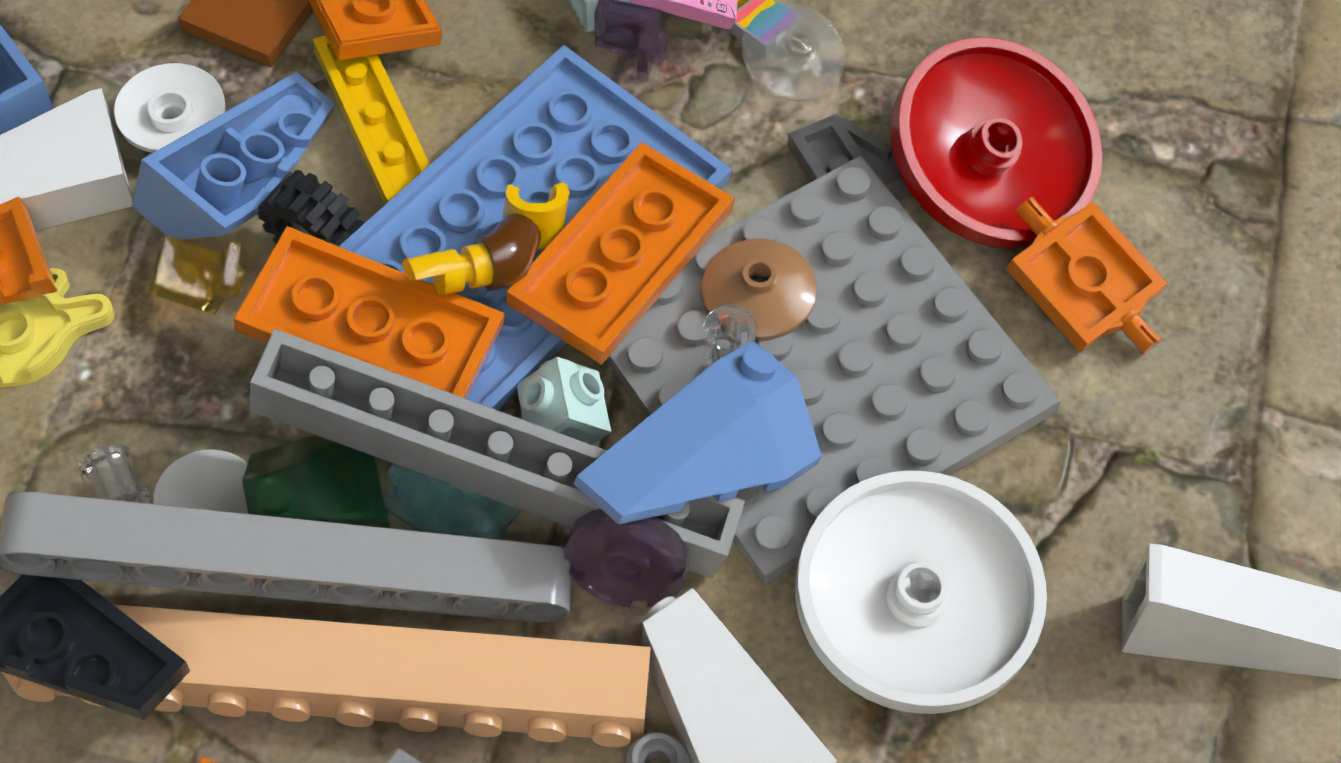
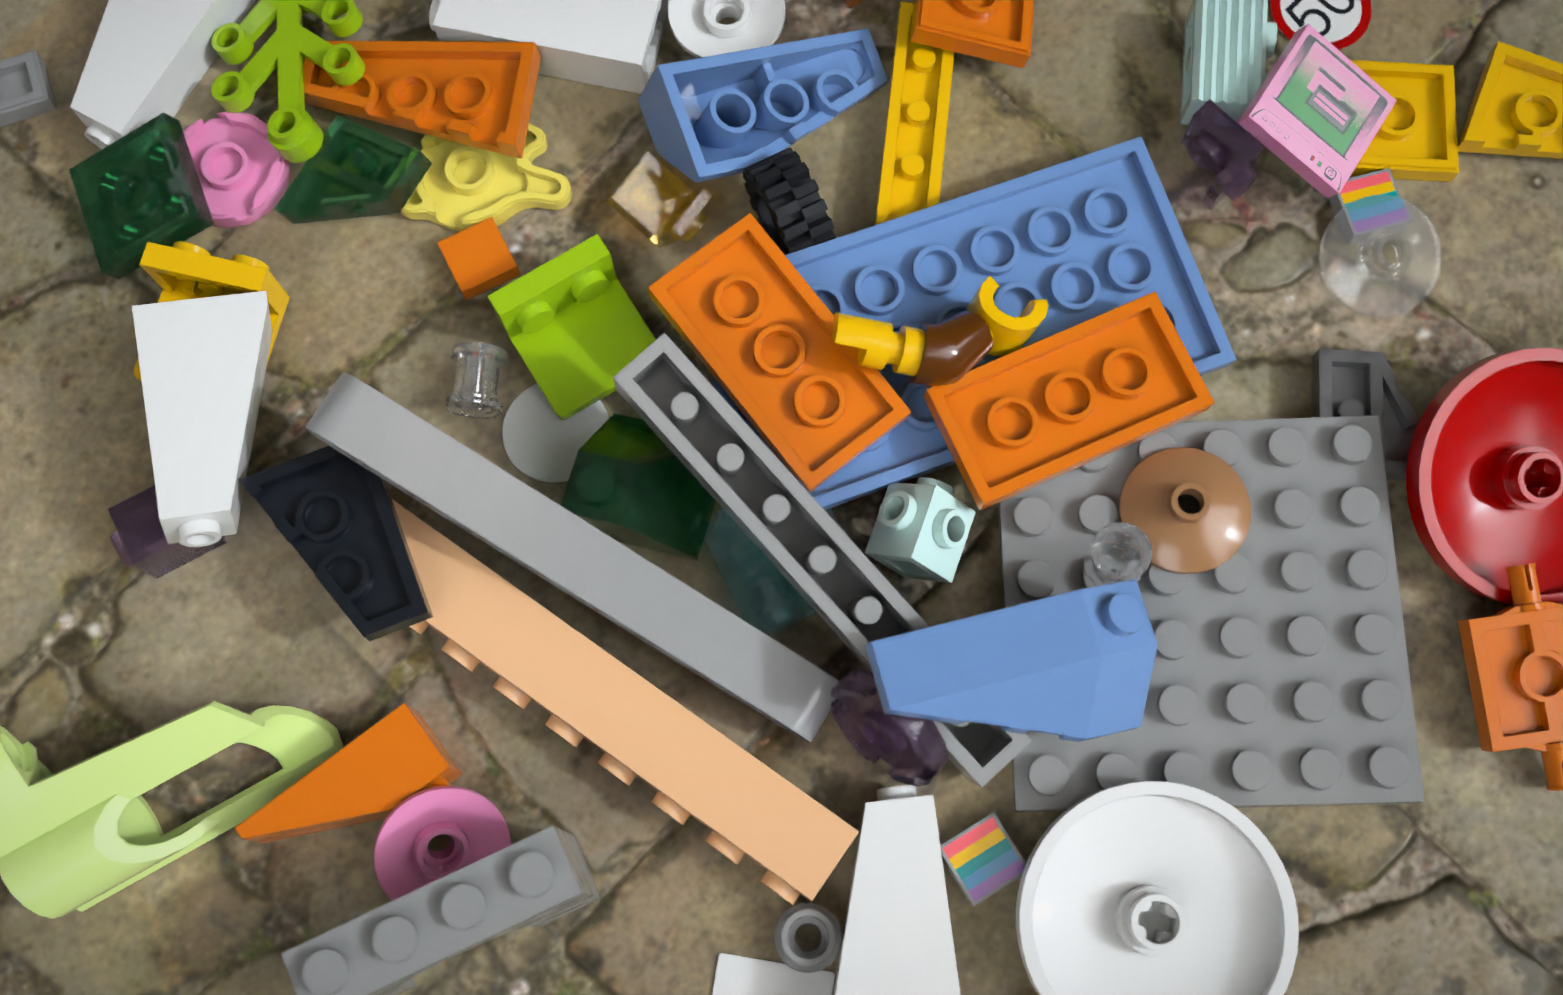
camera: 35 degrees right, 15 degrees up
(58, 393) = (478, 258): none -> orange tile
(176, 401) = (573, 326): none -> lime bracket
(763, 627) = (982, 859): none -> tile

